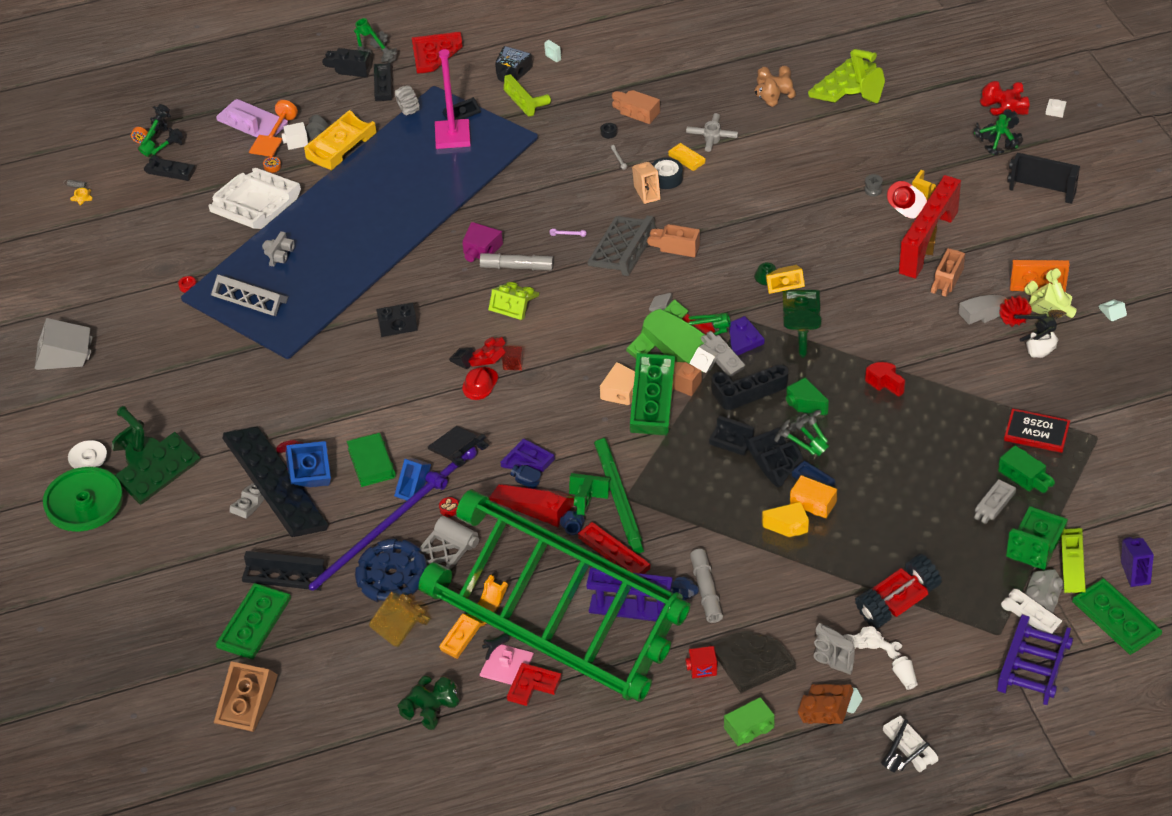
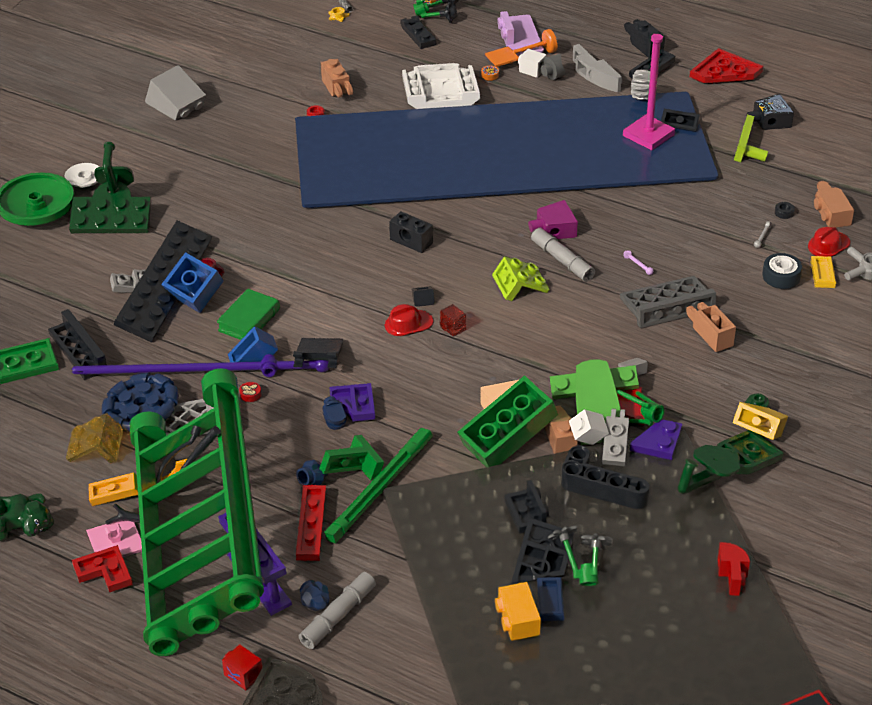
camera: 45 degrees right, 5 degrees down
(169, 247) = (335, 78): none -> nougat hinge
(249, 288) = (340, 140): light grey fence -> none
(276, 248) = (400, 126): light grey hips -> none
(334, 110) = (596, 71): none -> light grey slope
(337, 139) = (555, 81): yellow piece -> none
(377, 40) = (676, 12): plant -> none
(489, 353) = (434, 301): red plate -> none
(517, 555) = (200, 448): none -> black piece
(534, 502) = (312, 433): red wedge -> none
(552, 51) = (819, 123): light aqua tile -> none
(646, 175) = (751, 259): light nougat torso -> none
(664, 135) = (828, 242): none -> red piece
(786, 520) = (473, 612): yellow slope -> none
(806, 398) = (635, 527): green slope -> none

